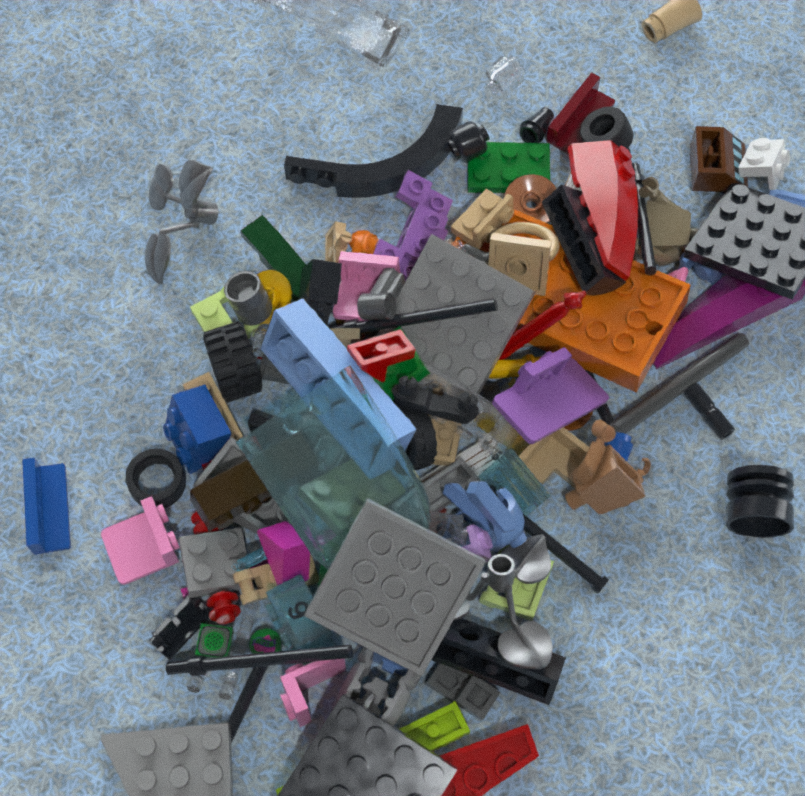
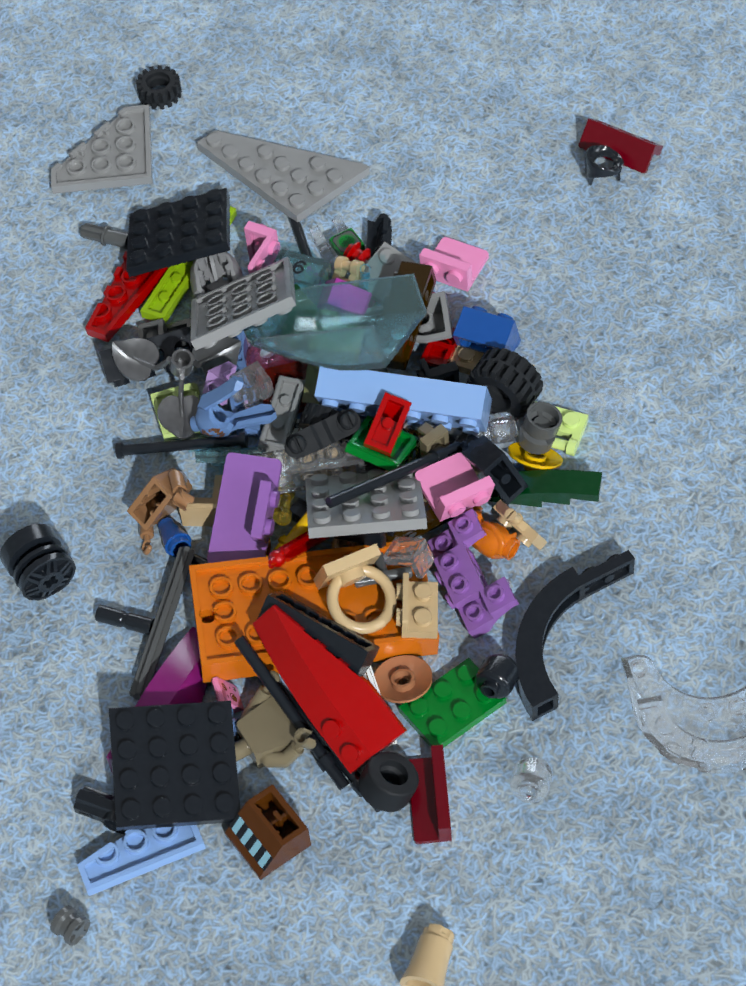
camera: 145 degrees right, 10 degrees down
(46, 507) = (542, 240): blue panel -> none
(149, 458) = (488, 285): black tyre -> none
(190, 183) = (658, 474): flat silver plant -> none
(200, 664) = (339, 225): black bar -> none
(381, 301) = (428, 467): dark grey piece -> none
(536, 126) = (460, 755): black cone -> none
(765, 159) = (225, 860): white bracket -> none

